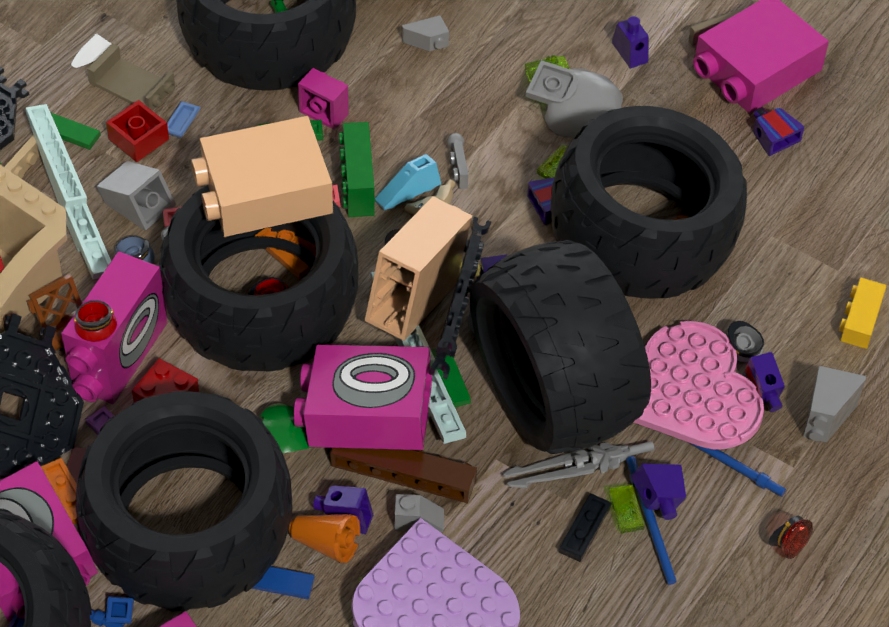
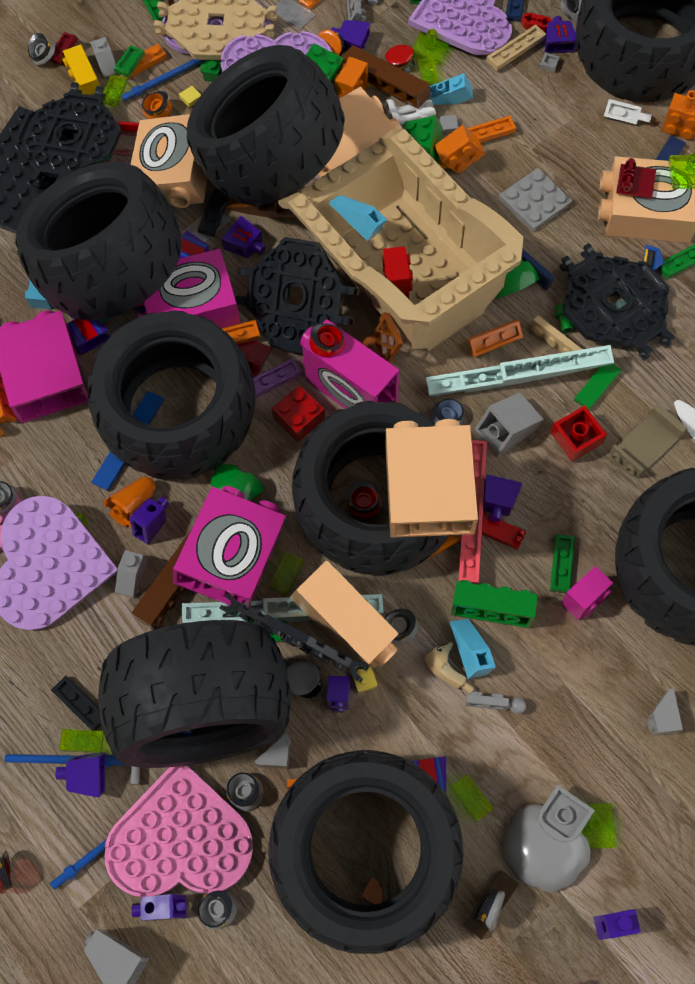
camera: 110 degrees right, 15 degrees up
(182, 119) = (593, 475): medium blue tile -> none

